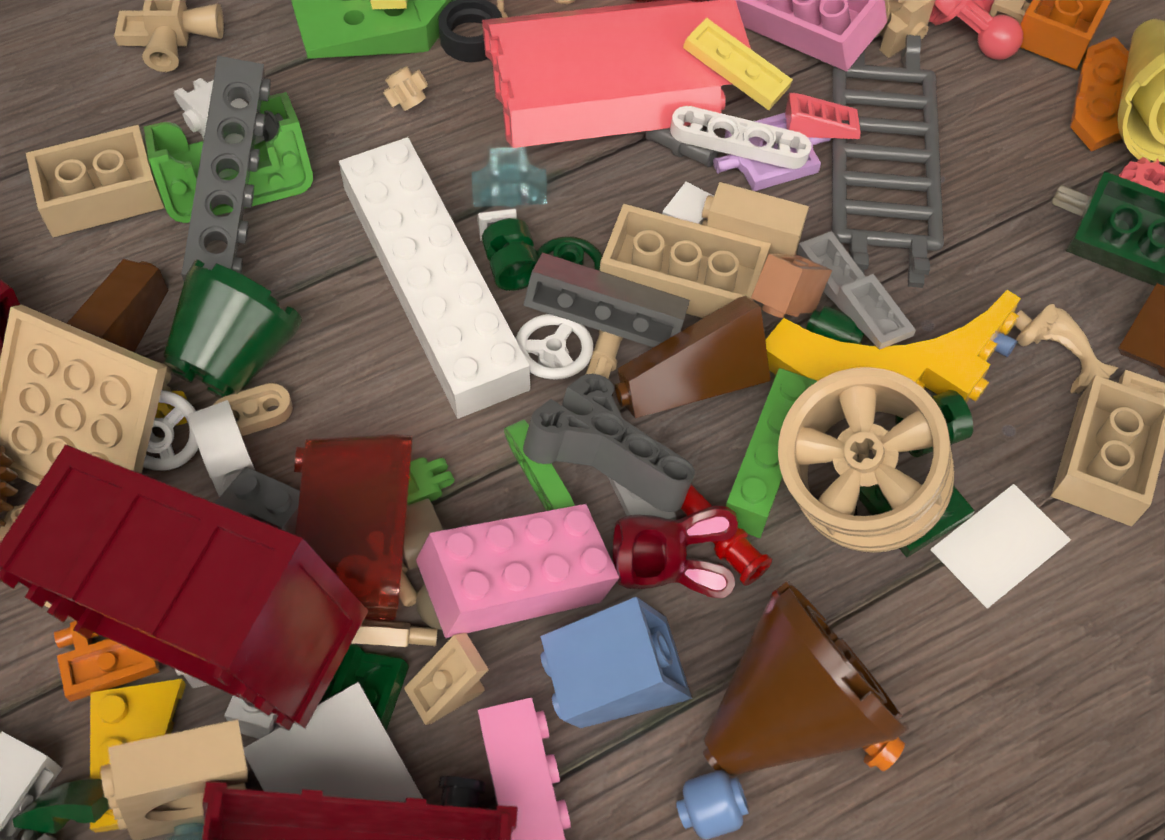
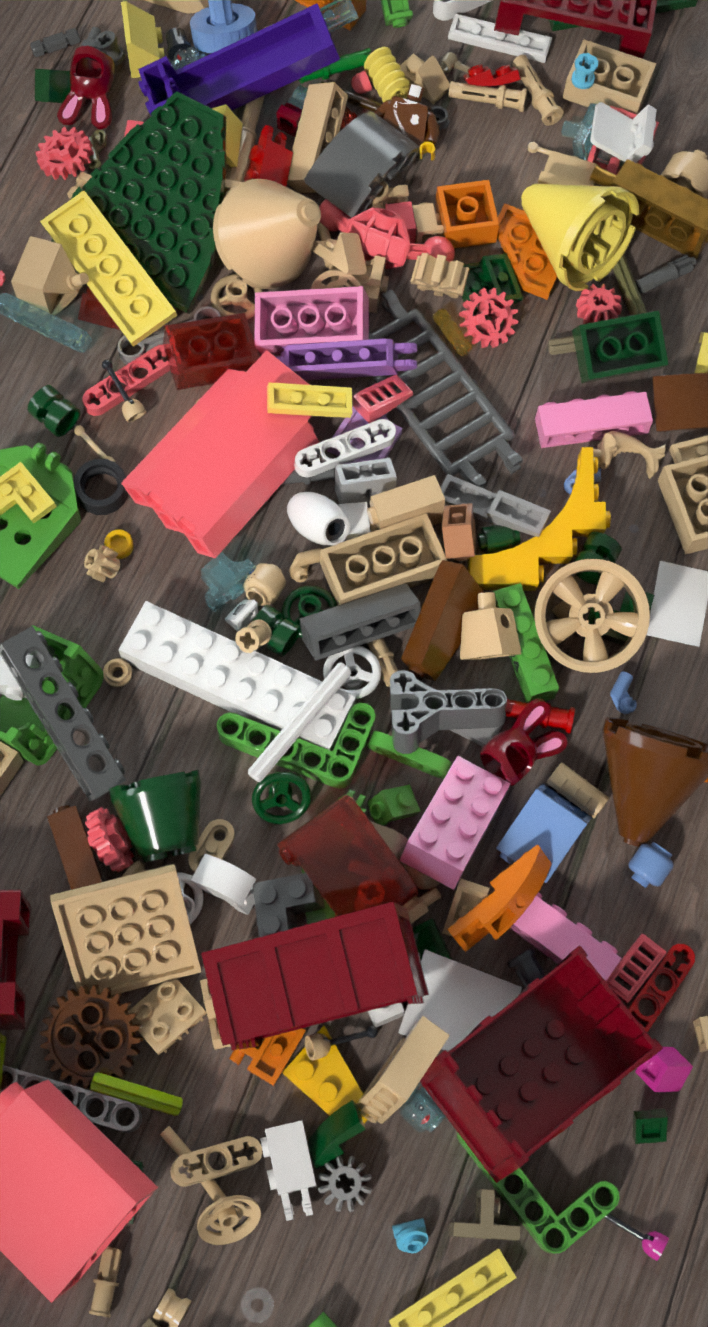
camera: 40 degrees left, 10 degrees up
(149, 318) = (109, 839): none -> coral gear
(152, 692) = (319, 1045): none -> hinge
(327, 191) = (111, 667): none -> tan plate
(379, 401) = (278, 784): none -> dark green piece
(429, 386) = (302, 749): none -> bright green beam
(441, 89) = (120, 542): none -> yellow tile
(442, 341) = (299, 722): none -> white axle
(472, 231) = (253, 636): none -> tan bush
(473, 505) = (393, 805): none -> bright green bracket
(491, 699) = (513, 894): none -> orange slope
(544, 207) = (264, 584): none -> tan head
(598, 219) = (301, 563): none -> tan arm
(651, 178) = (318, 518): none -> white piece
(697, 652) = (577, 790): none -> tan axle
(729, 167) = (364, 479): none -> light grey brick
(736, 403) = (488, 631): none -> tan torso
(820, 62) = (348, 358): none -> medium lavender hinge
(841, 589) = (620, 696): none -> medium blue arm
(955, 117) = (452, 332): none -> clear yellow axle
(983, 50) = (440, 275): none -> tan gear
(1023, 122) = (490, 328): none -> coral gear
(1033, 99) = (490, 273): none -> dark green slope
(1045, 280) = (593, 418): none -> bright pink brick

